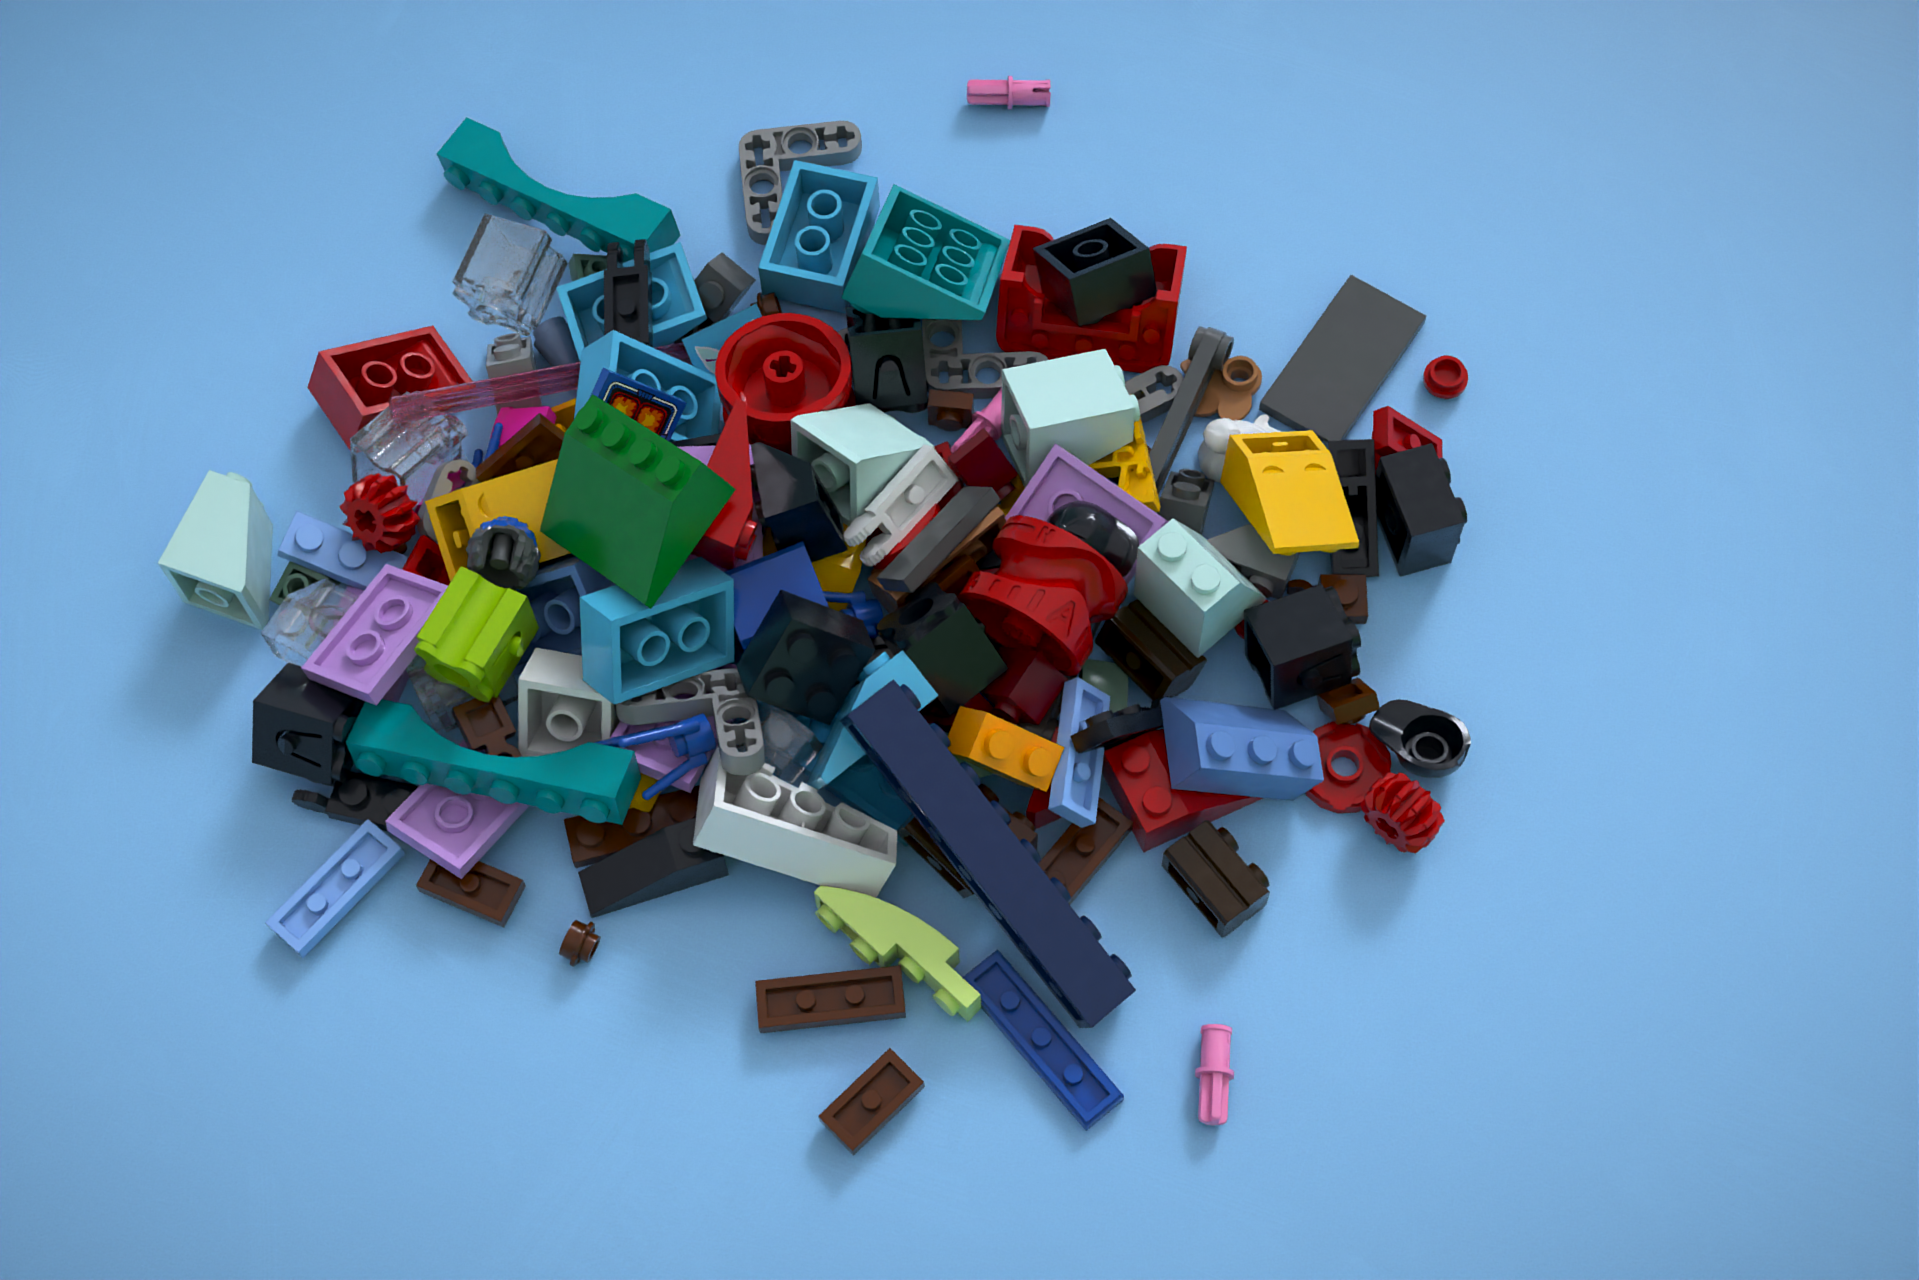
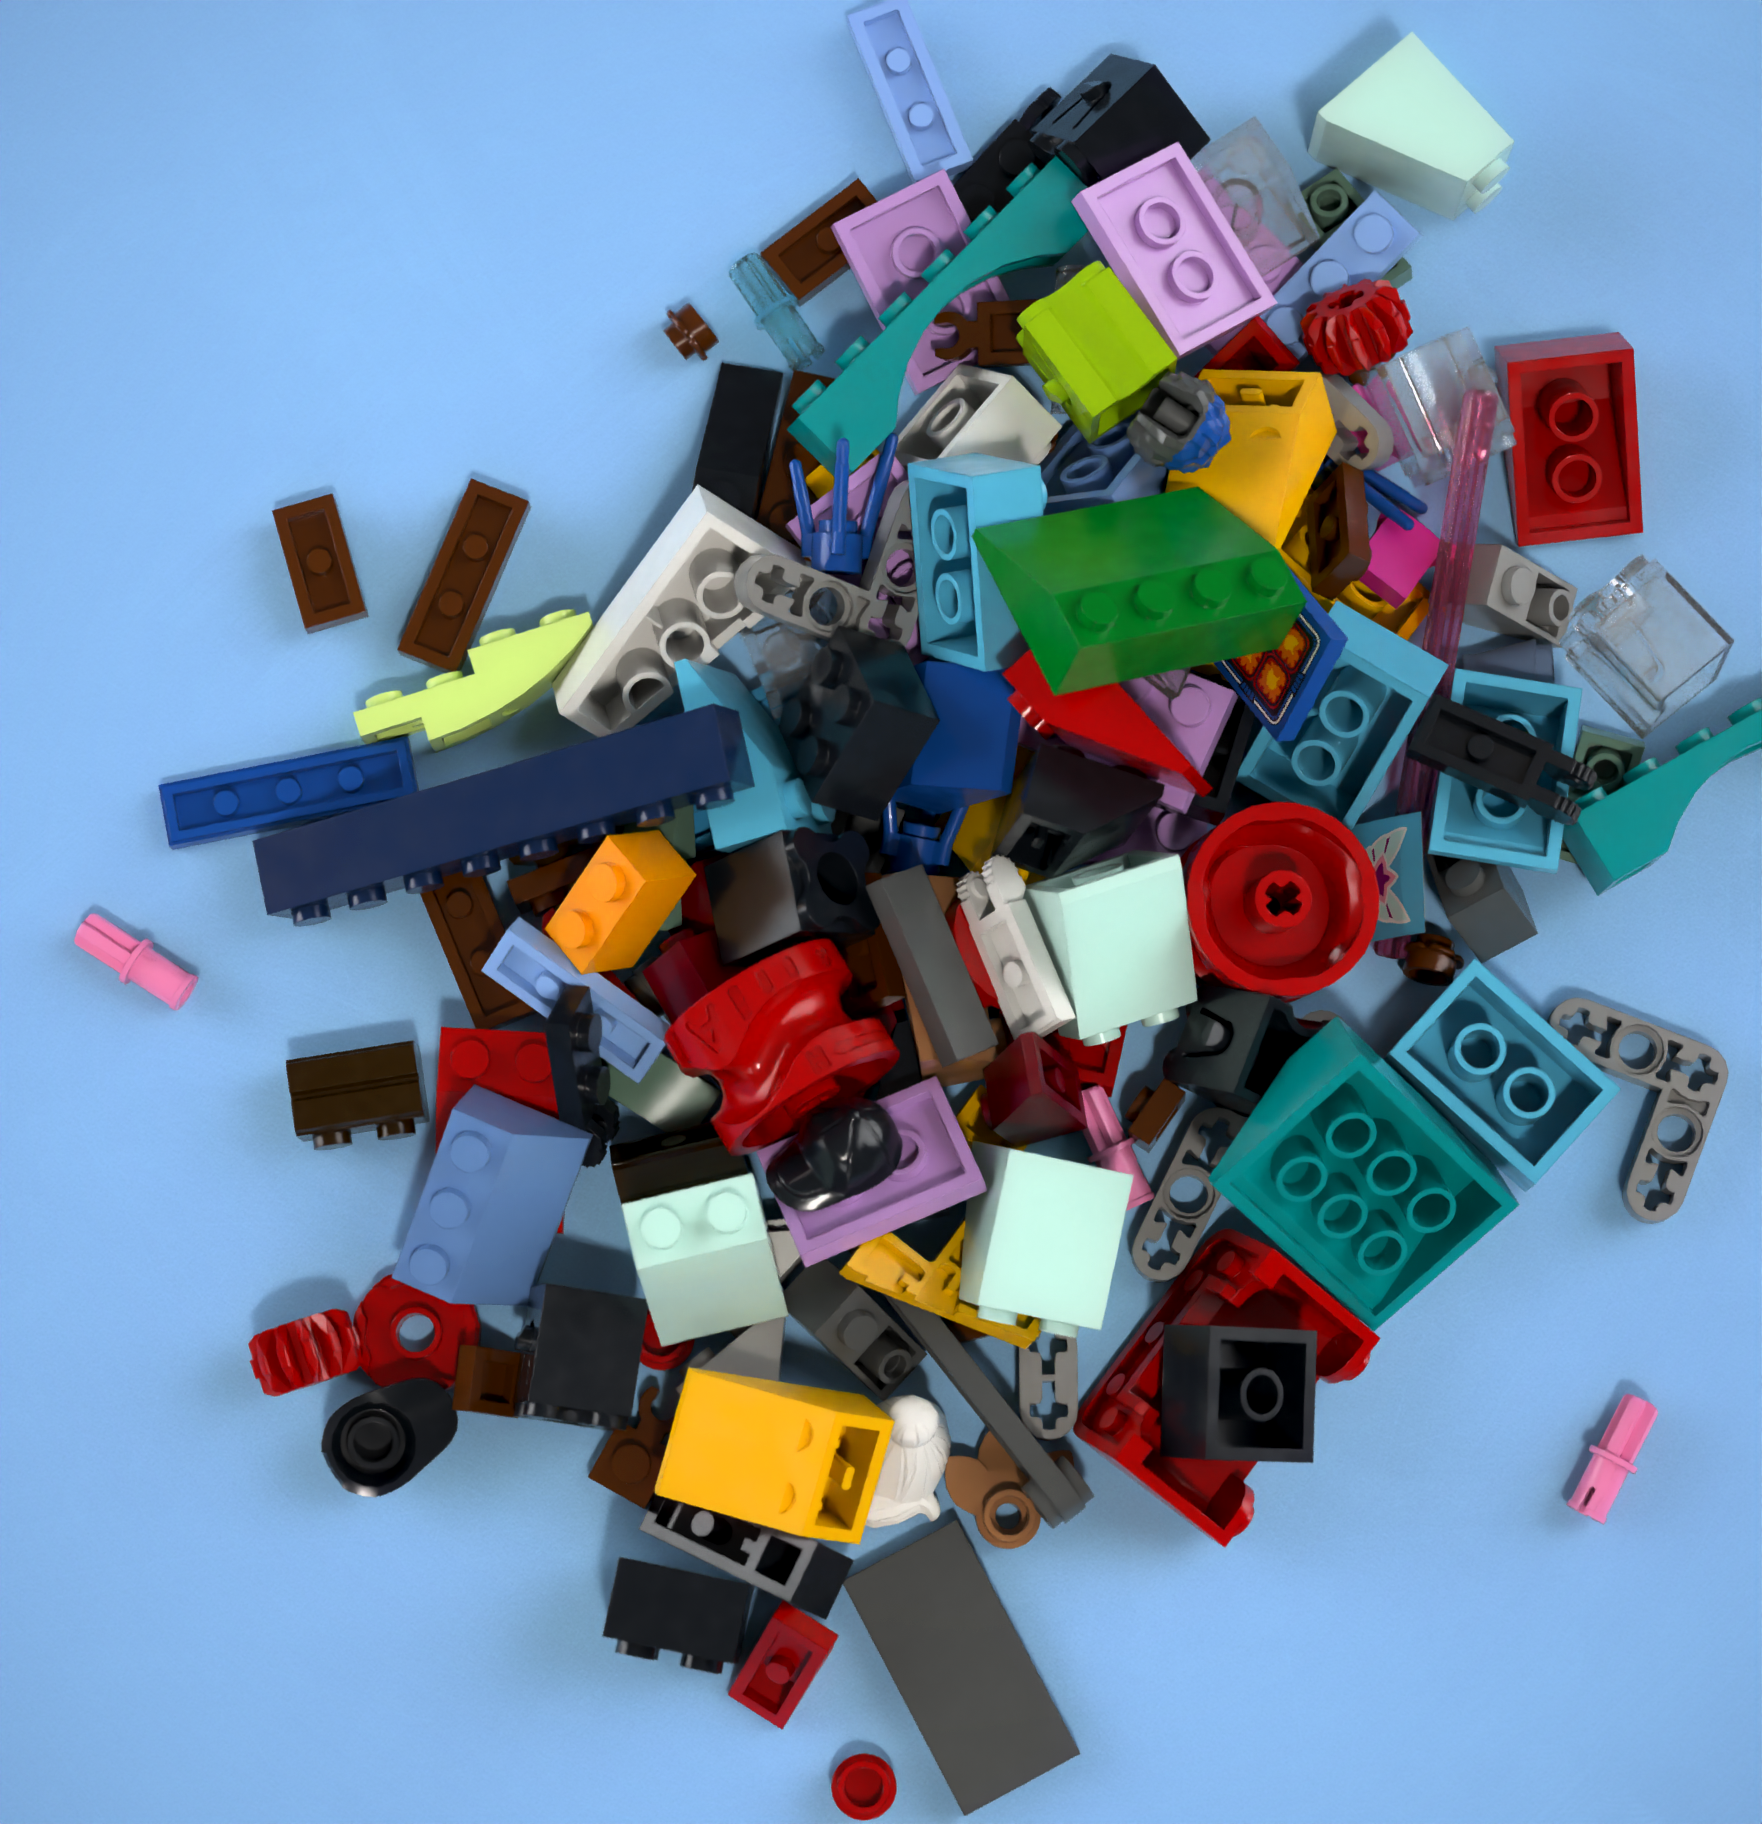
camera: 120 degrees right, 15 degrees up
(537, 896) = (775, 311): none -> clear light blue axle

